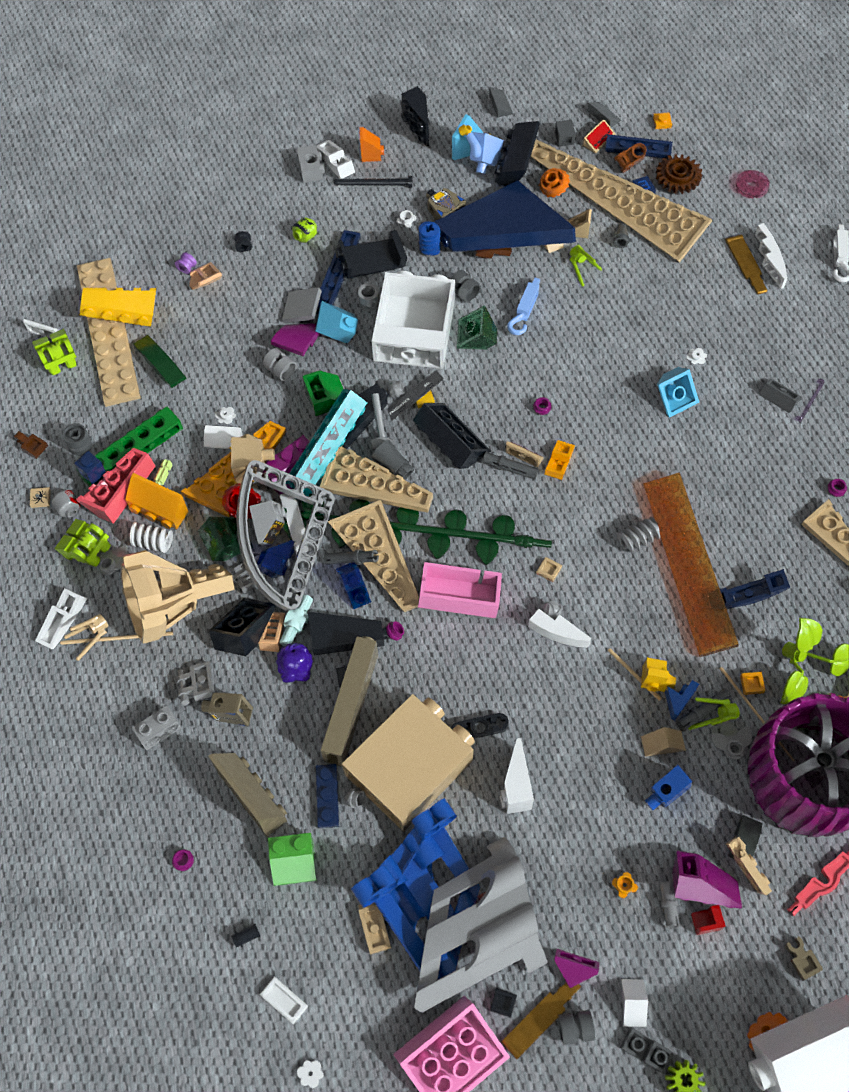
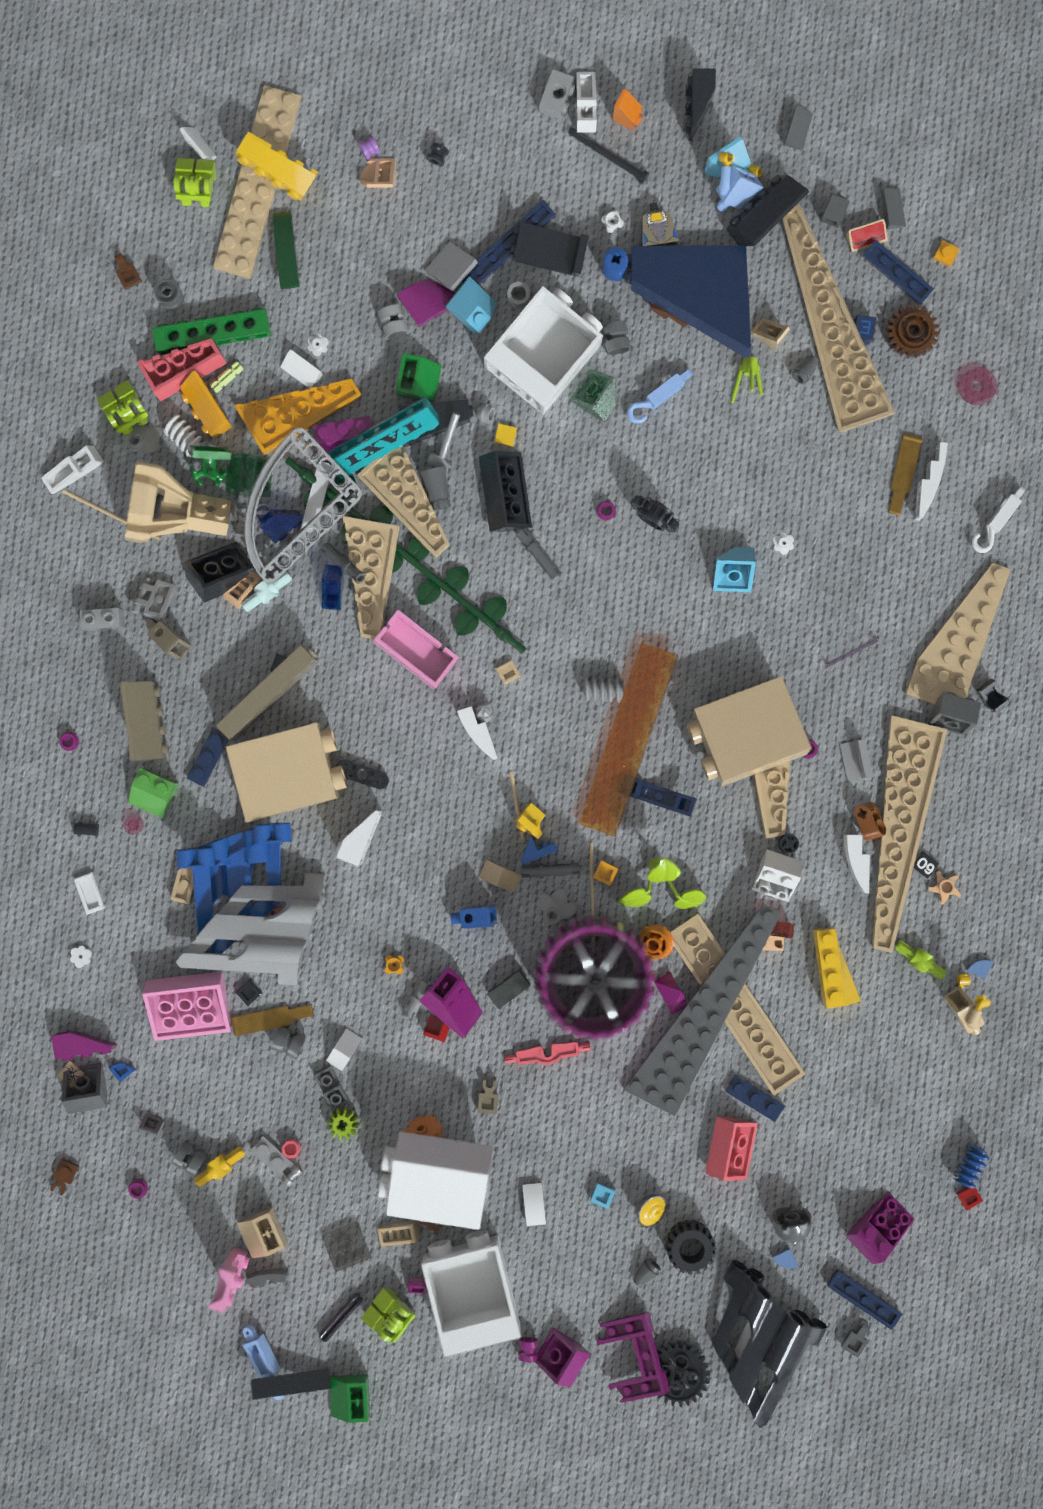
camera: 30 degrees right, 25 degrees up
(40, 497) = (110, 334): tan tile -> none
(65, 503) = (128, 354): light grey head -> none
(90, 467) = (162, 338): dark blue brick -> none
(95, 624) = (98, 493): tan plant -> none
(185, 544) = (208, 463): none -> green piece
(230, 500) = (269, 444): red hair -> none
(243, 451) = (305, 411): tan torso -> none
(267, 521) = (288, 485): light grey slope -> none
(290, 903) = (133, 825): none -> clear pink tile
(294, 663) = (243, 633): dark purple hair -> none
(304, 229) = (504, 176): lime head -> none
(339, 633) = (296, 626): black slope -> none
(355, 797) = (226, 773): light grey plate -> none
(395, 630) = (343, 650): magenta plate -> none
(414, 394) = (498, 429): flat silver sticker -> none
(523, 454) = (559, 548): tan slope -> none
(554, 182) = (784, 271): orange piece -> none
(559, 459) = (586, 574): light orange slope -> none
(575, 967) = (316, 1000): magenta slope -> none
(584, 380) = (655, 514): none -> black gear
(628, 159) = (873, 283): dark orange piece -> none
(726, 712) = (566, 885): lime plant -> none
(748, 866) = (494, 1009): tan hinge -> none
(779, 395) = (827, 630): dark grey slope -> none
(784, 495) = (748, 732): none -> tan brick

